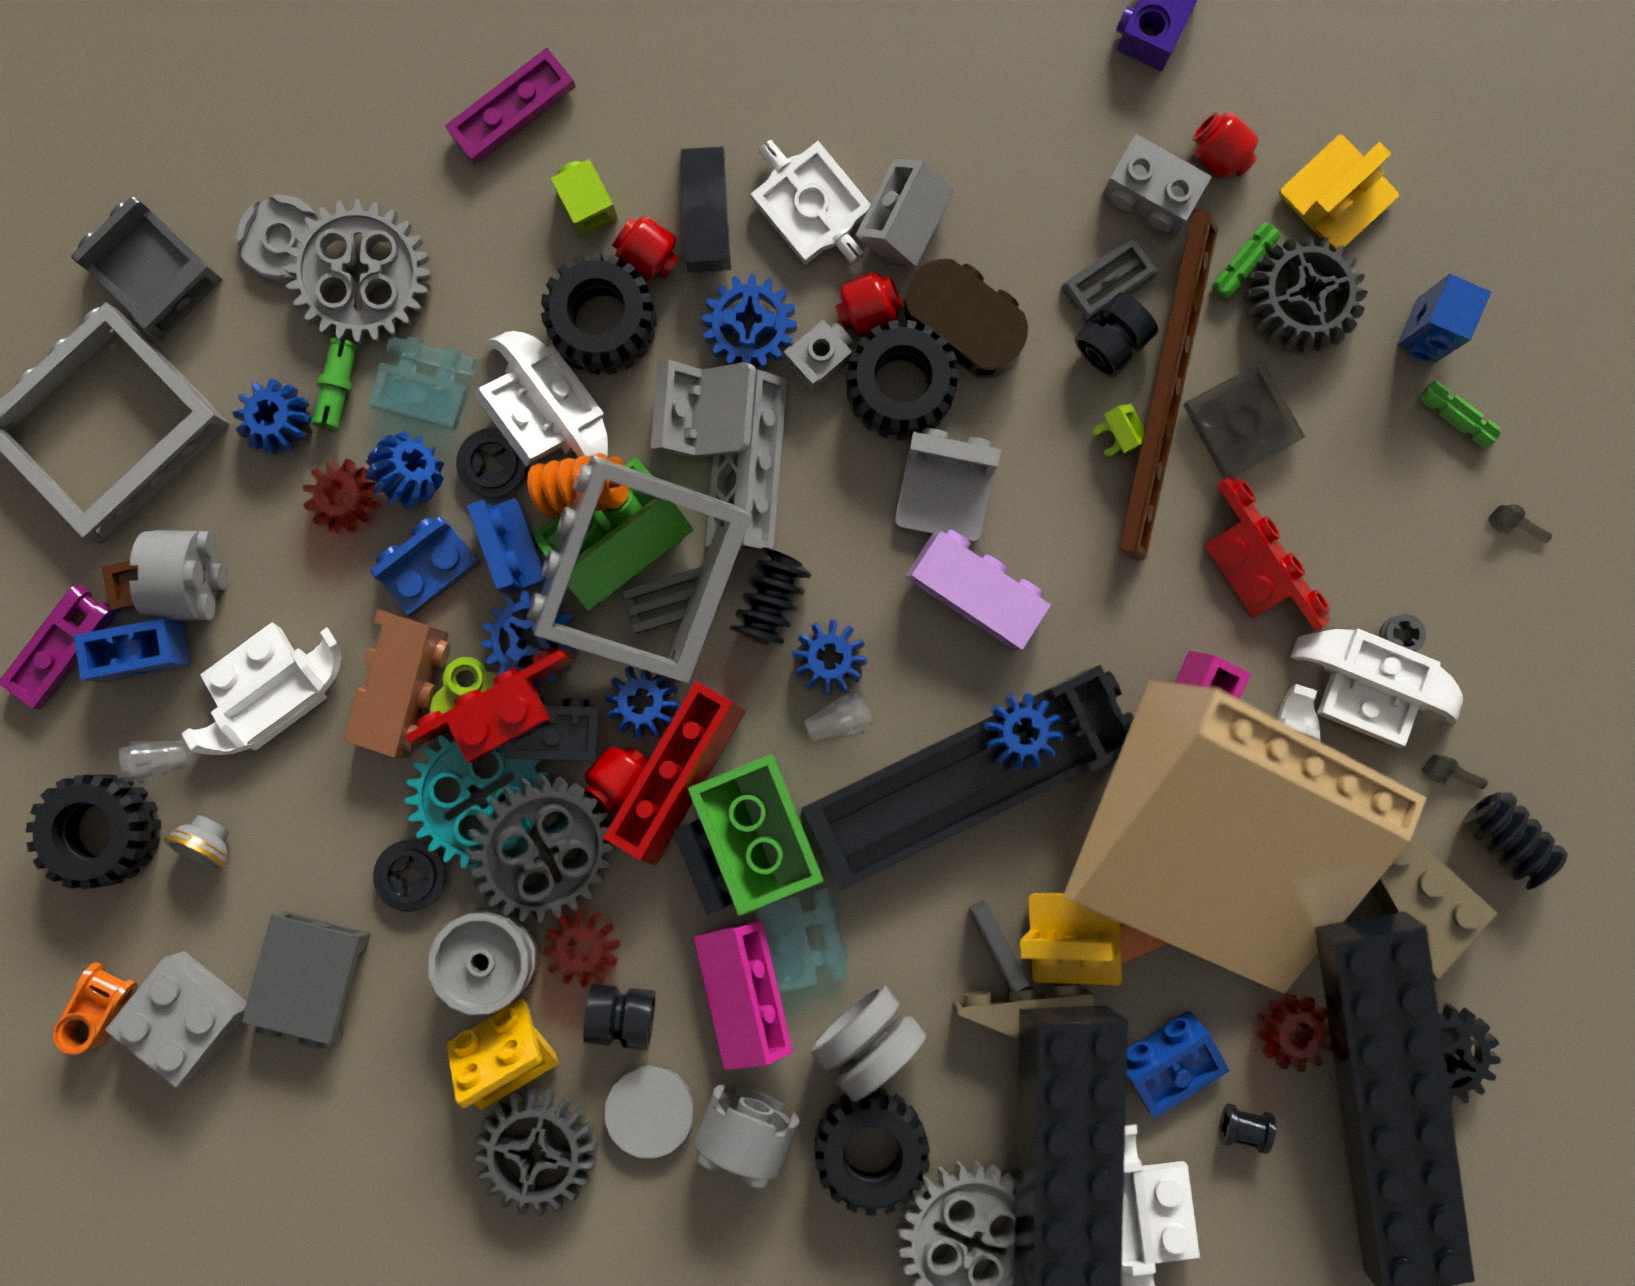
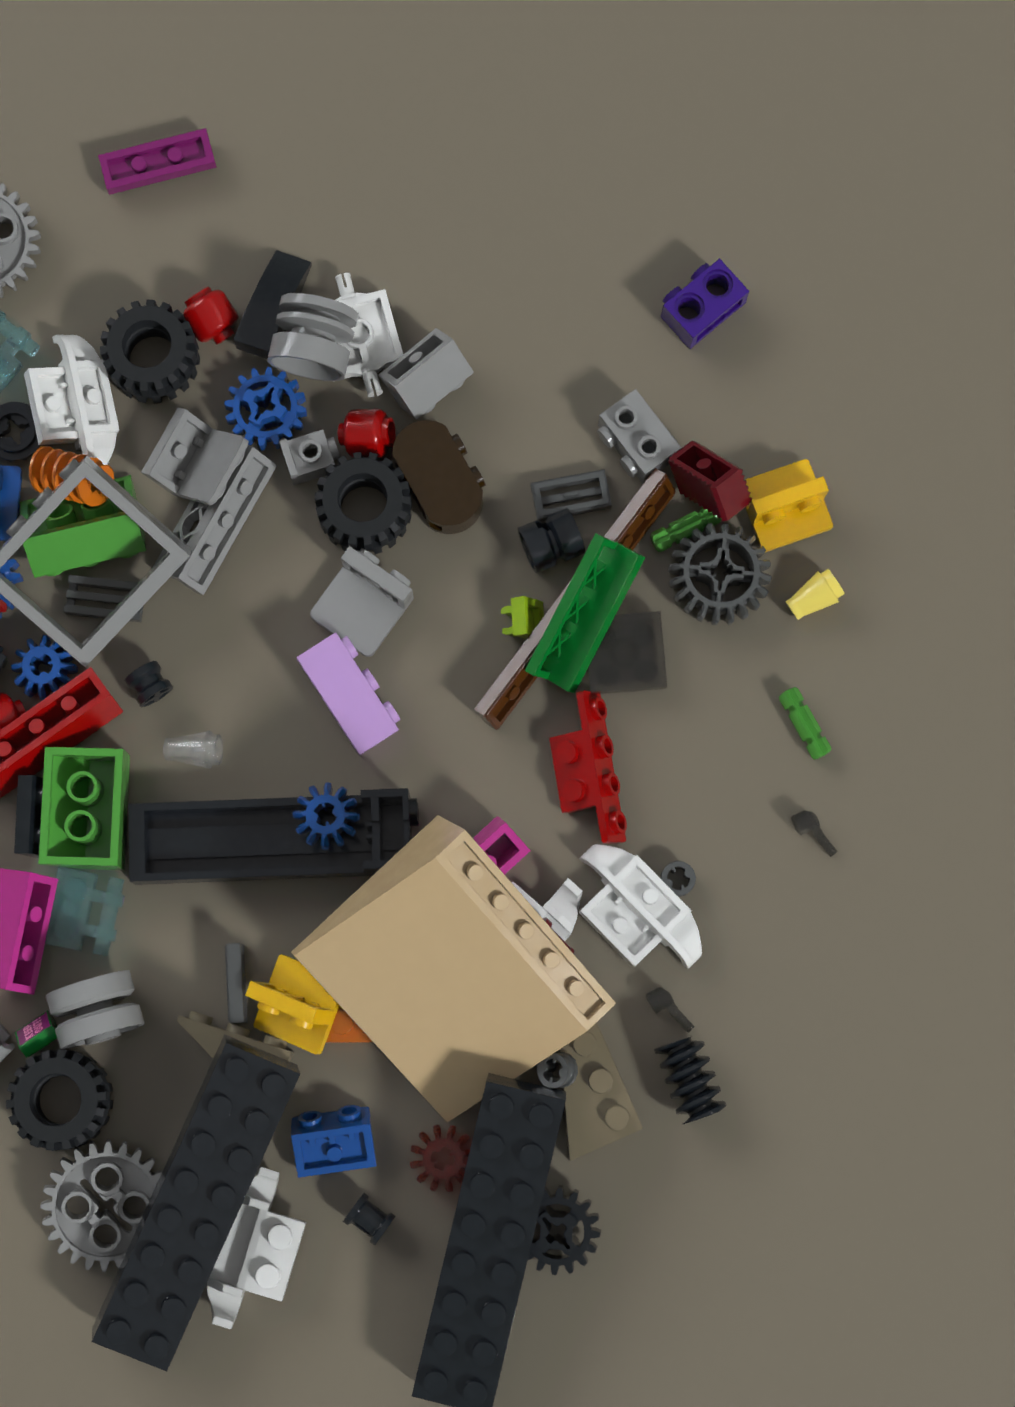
camera: 25 degrees right, 5 degrees down
(584, 196) = (181, 255): lime brick -> none
(760, 670) = (148, 684): none -> black wheel
(771, 598) = (182, 630): black piece -> none
(773, 221) = (313, 336): none -> light grey wheel
(813, 1091) = (36, 1034): none -> tile
(842, 649) = (221, 691): blue gear -> none
(1194, 395) = (585, 612): none -> green fence
(1225, 145) = (709, 426): red head -> none
(1260, 198) = (710, 480): none -> dark red brick
(1399, 893) = (567, 1073): none -> dark grey bush
(1414, 273) = (816, 594): none -> light yellow cone
(1443, 318) = (815, 638): blue brick -> none

